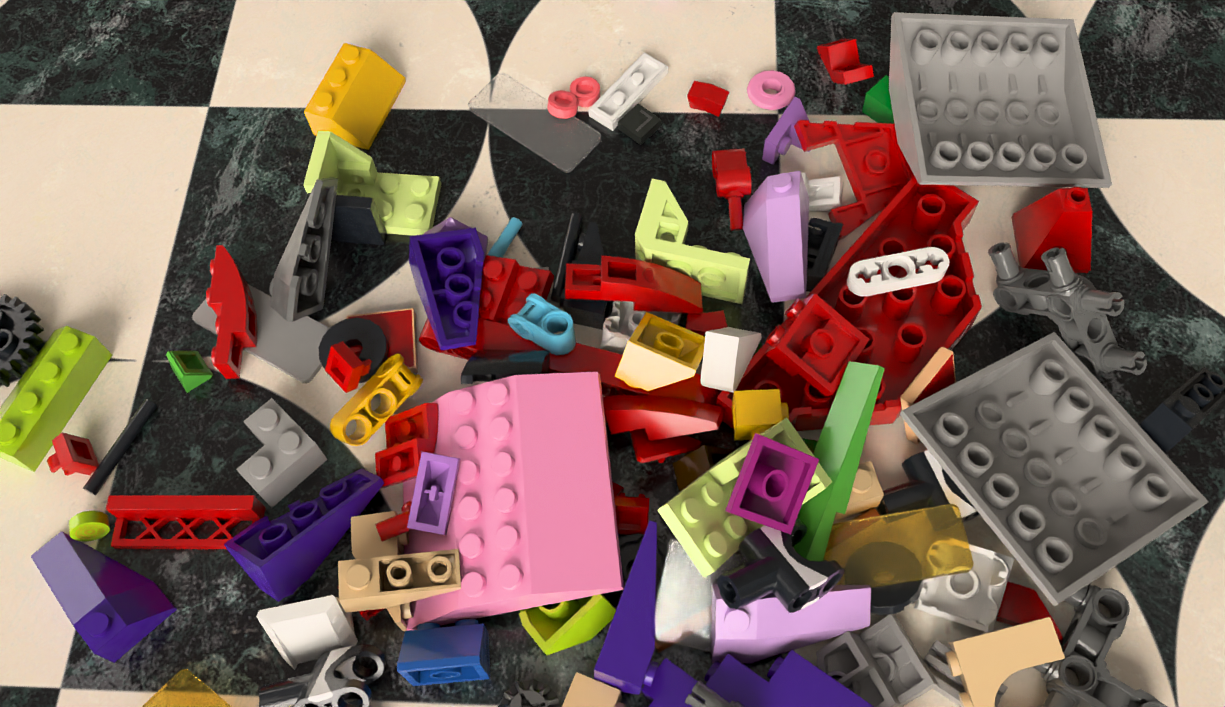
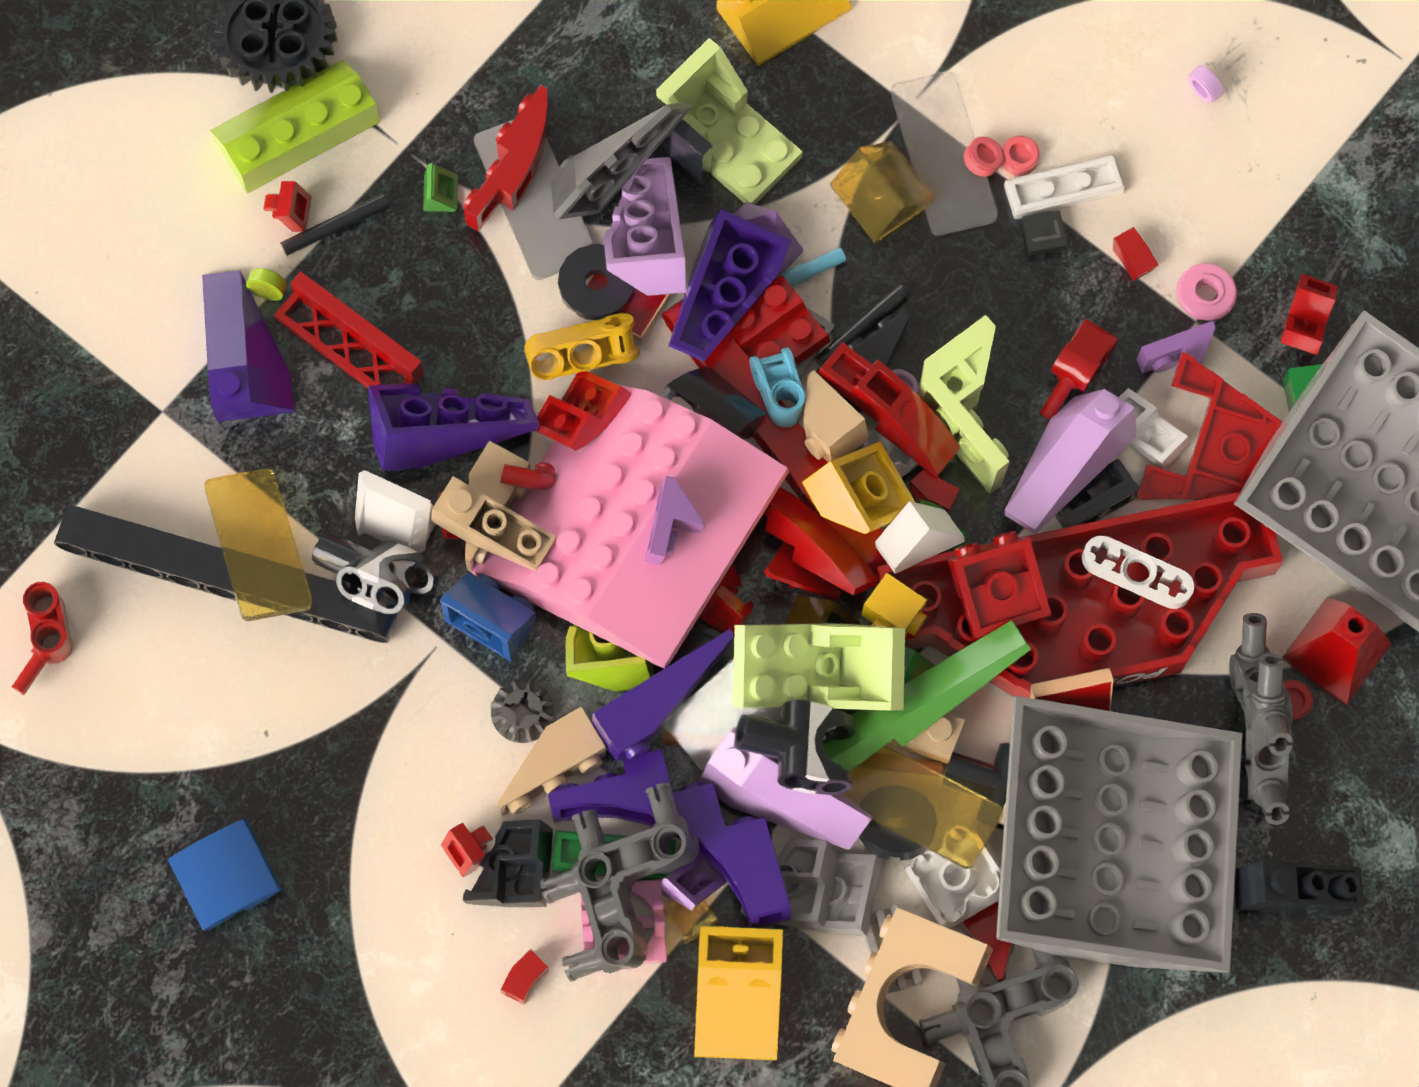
camera: 30 degrees right, 10 degrees up
(285, 457) = (471, 343): light grey brick -> none
(346, 367) = (576, 297): red tile -> none
(369, 292) = (646, 232): none -> lavender wedge
(433, 493) = (569, 474): medium lavender slope -> none
(510, 166) = (881, 189): none -> clear yellow slope
(538, 459) = (671, 511): none -> medium lavender slope
(601, 321) = (830, 421): none -> tan slope
(772, 484) = (842, 671): magenta slope -> none

